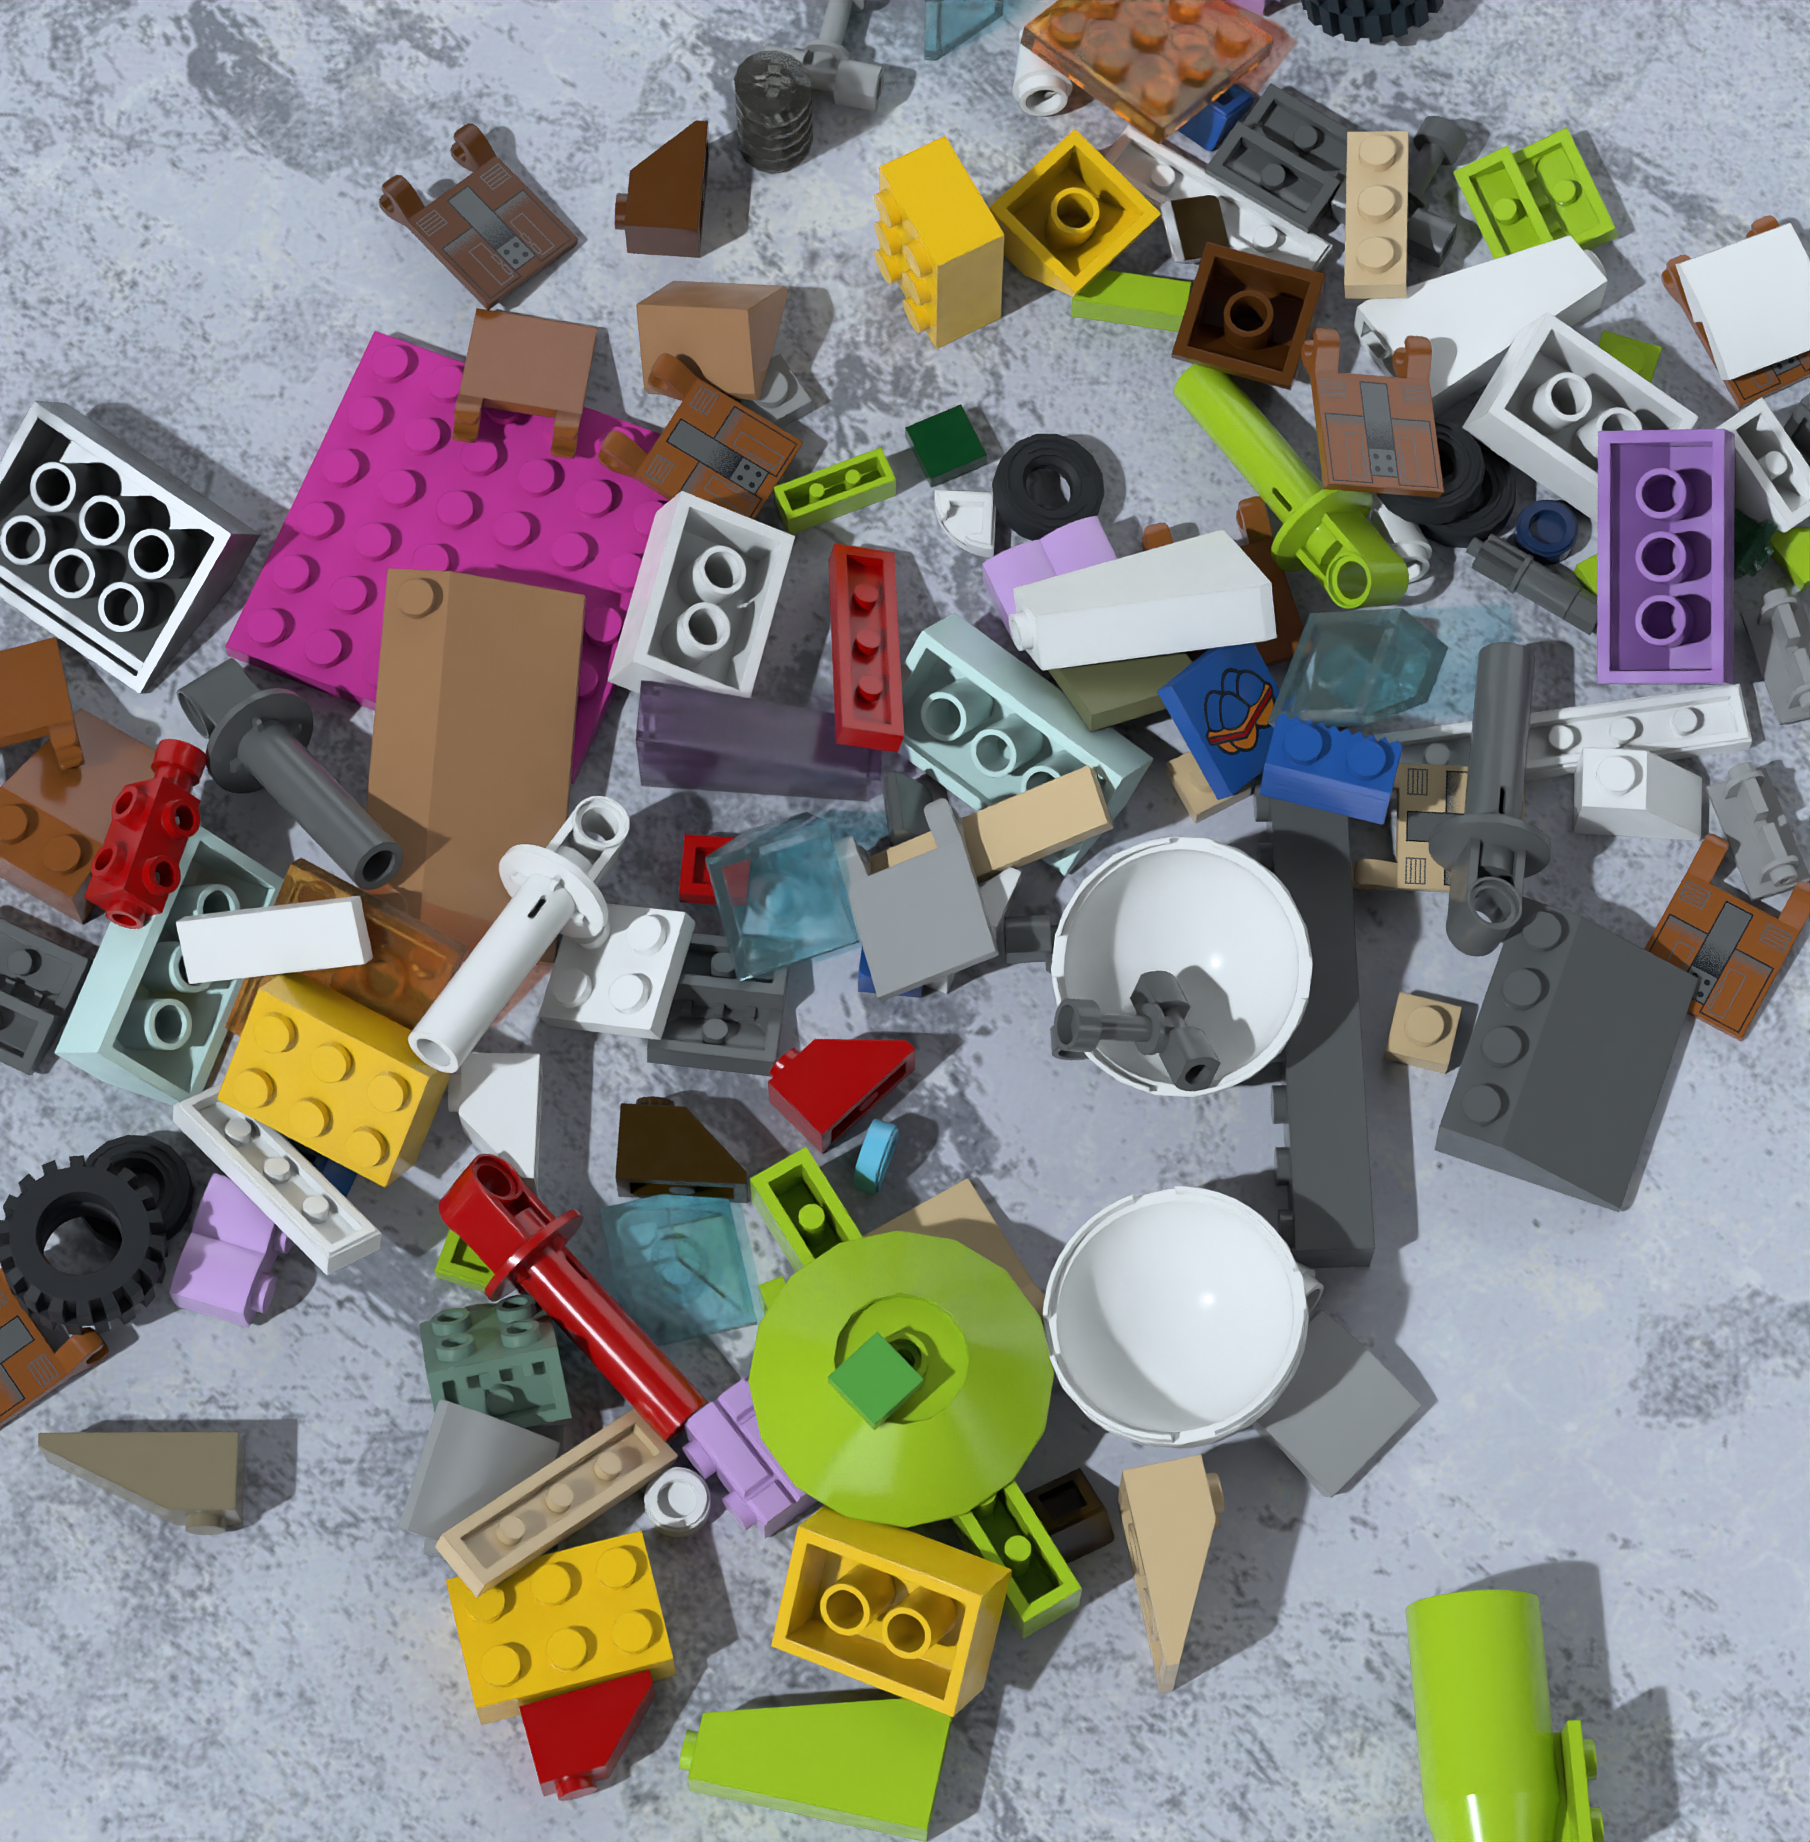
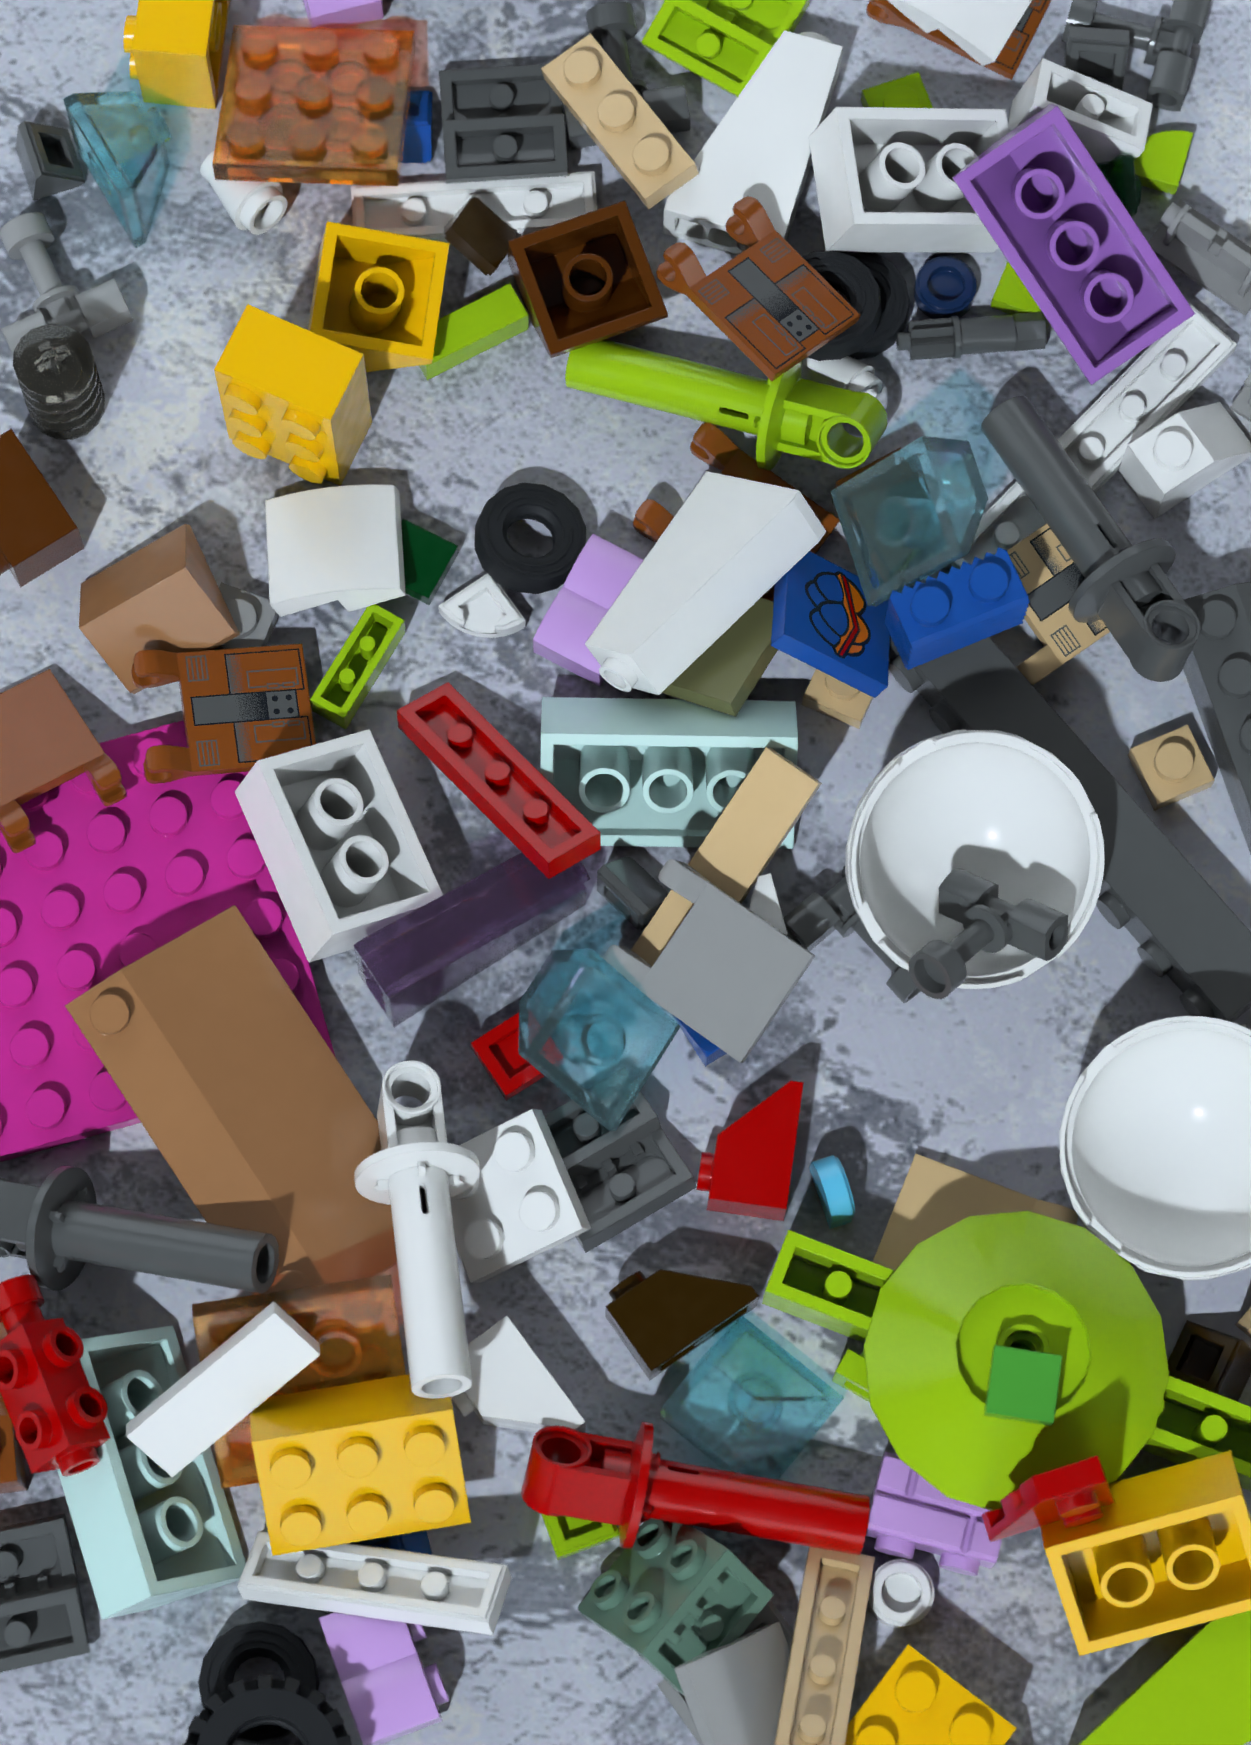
camera: 40 degrees left, 5 degrees up
(837, 1487) = (1065, 1493): none -> red wing
(887, 387) = (334, 547): none -> white slope

